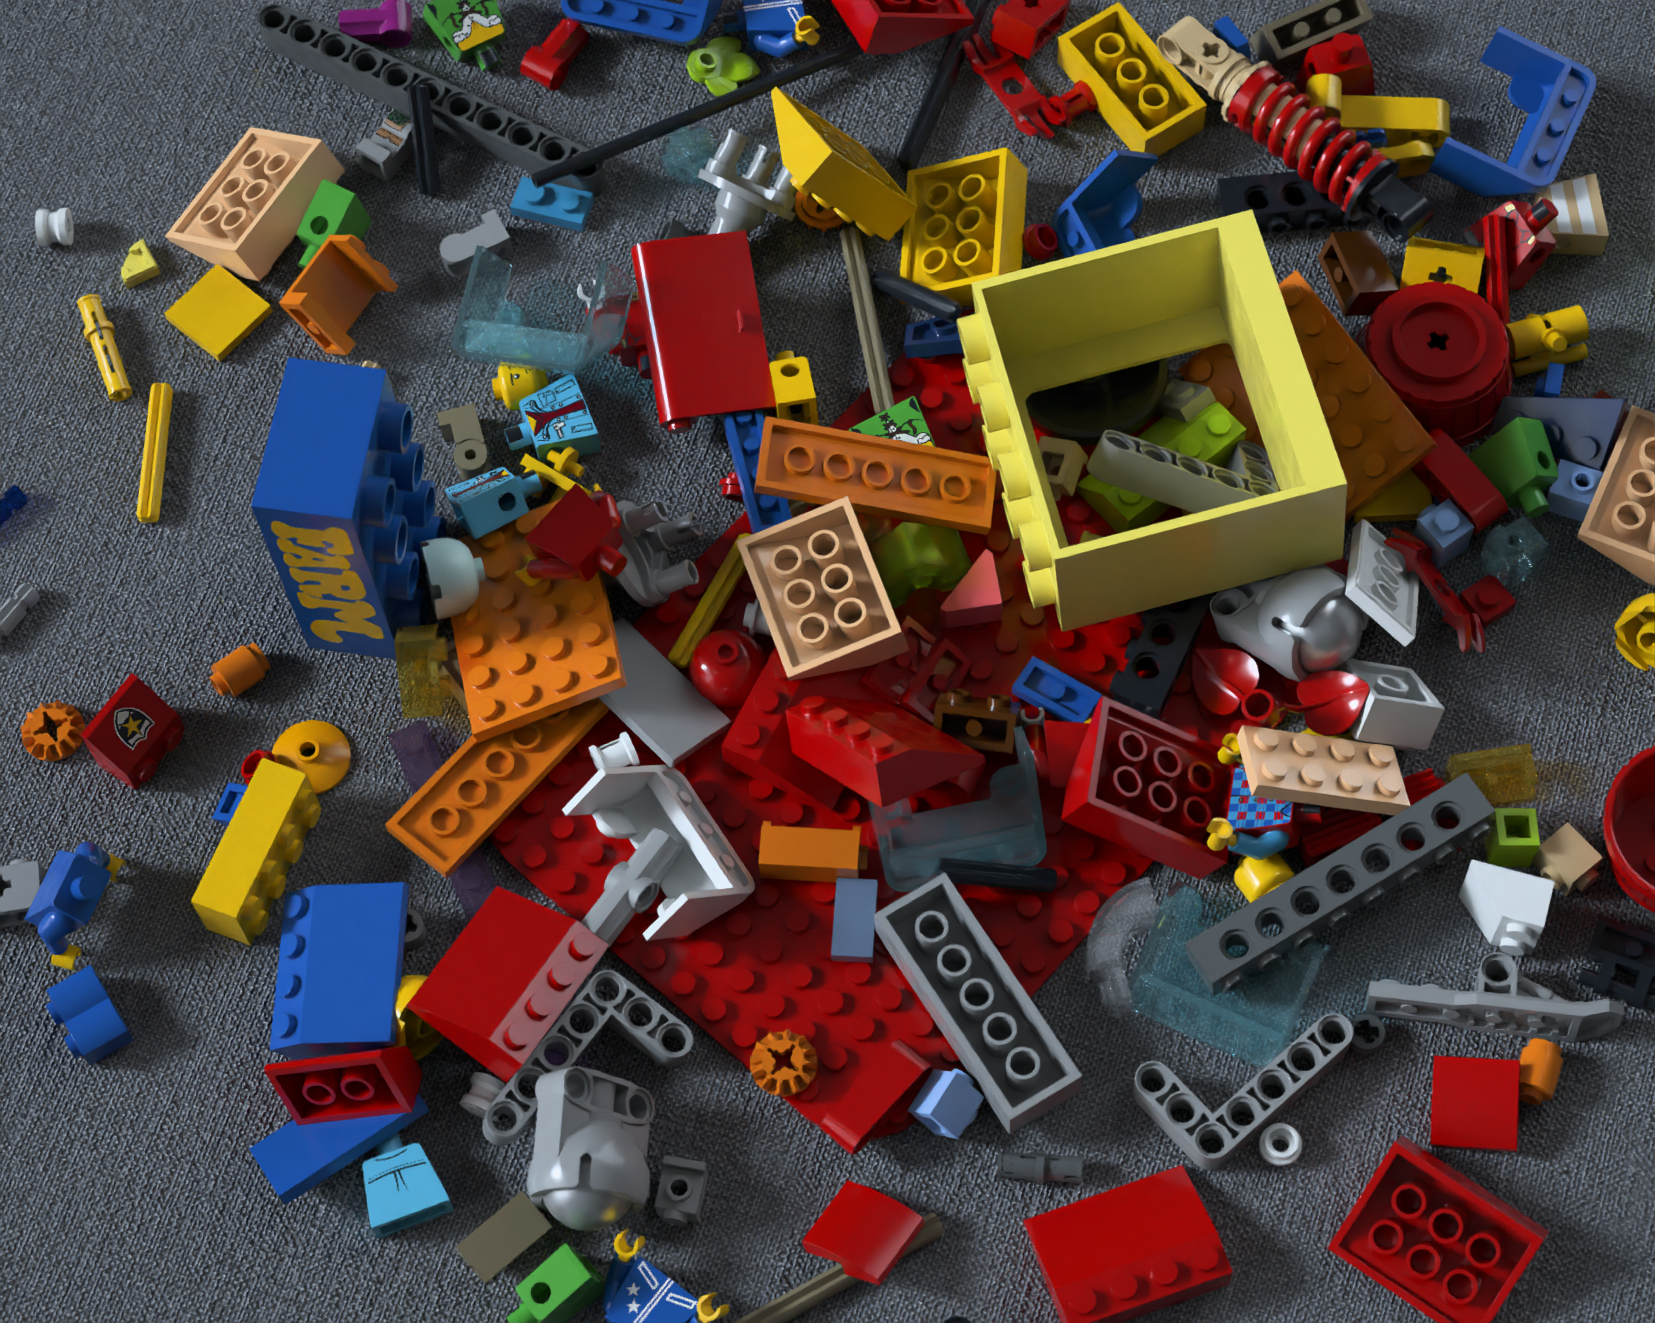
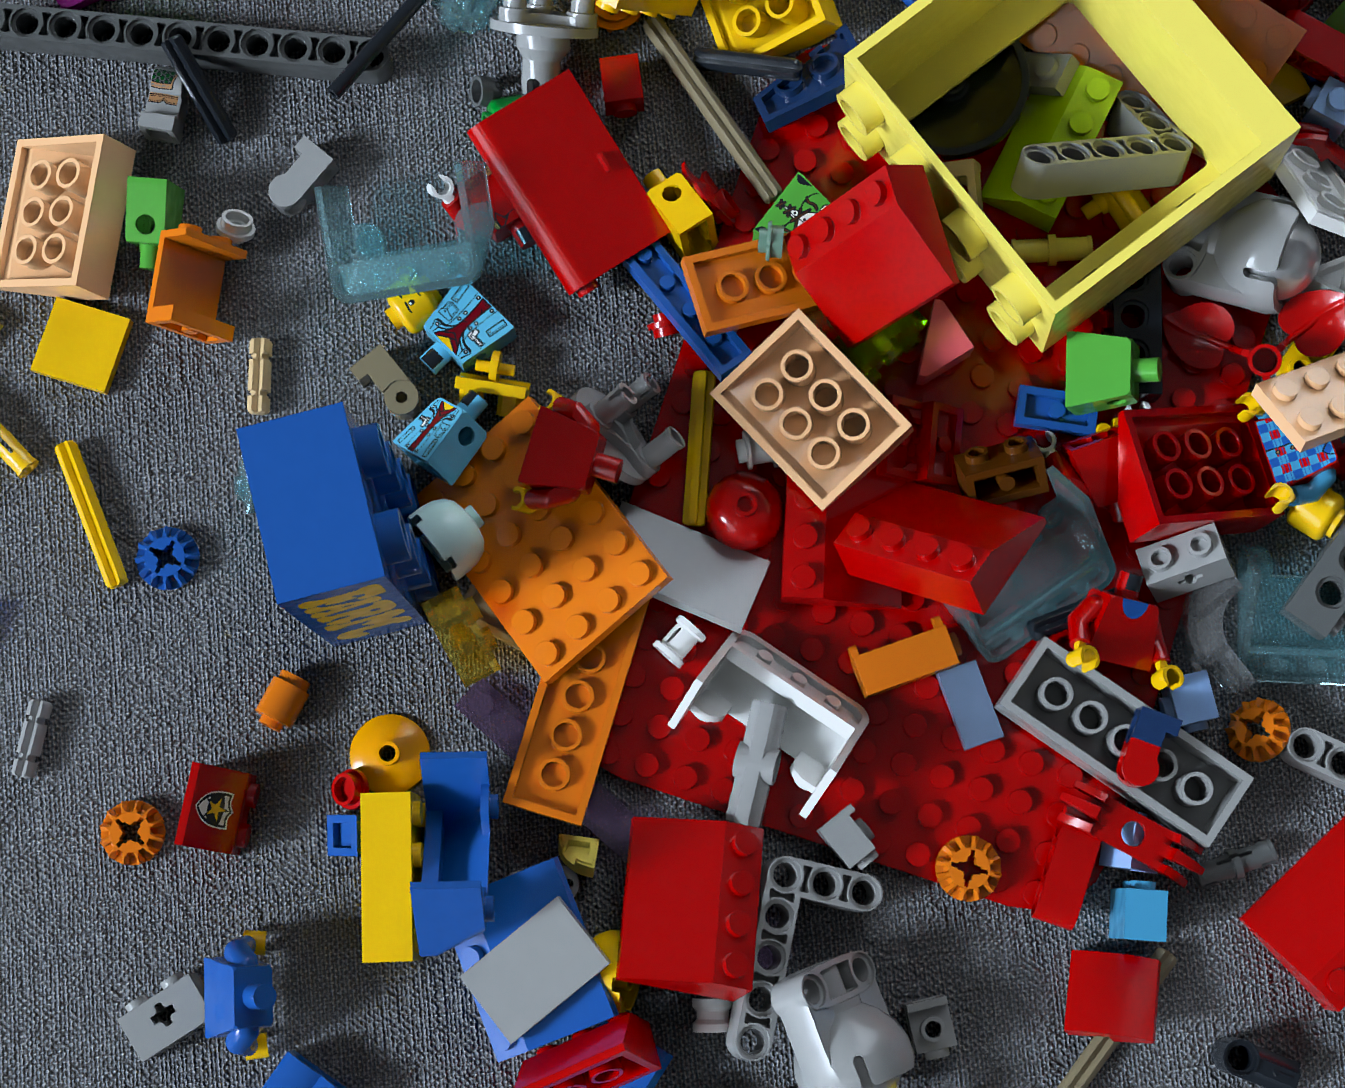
camera: 25 degrees left, 15 degrees up
(197, 529) = (170, 576): none -> blue gear
(298, 868) = (453, 893): none -> blue windscreen
(339, 970) = (535, 969): none -> light grey tile
(400, 263) = (236, 226): none -> white plate
(436, 906) = (579, 853): none -> light yellow tile
(552, 204) = (360, 104): dark azure plate -> none
(684, 986) = (849, 839): none -> light grey brick
(796, 273) = (622, 85): none -> red brick
(833, 400) = (718, 201): none -> red plate
(851, 432) = (771, 241): none -> sand green plate
(920, 1163) = (1138, 912): none -> dark azure brick
(927, 462) = (874, 253): none -> red slope
(957, 1106) = (1108, 826): none -> red piece
(986, 998) = (1139, 754): none -> leg
(1019, 899) = (1121, 632): none -> red torso
(1063, 999) = (1191, 702): none -> light blue brick
(1108, 665) = (1105, 372): none -> bright green torso
(1110, 865) = (1185, 562): none -> light grey brick
(1110, 1066) = (1259, 747): none -> orange gear

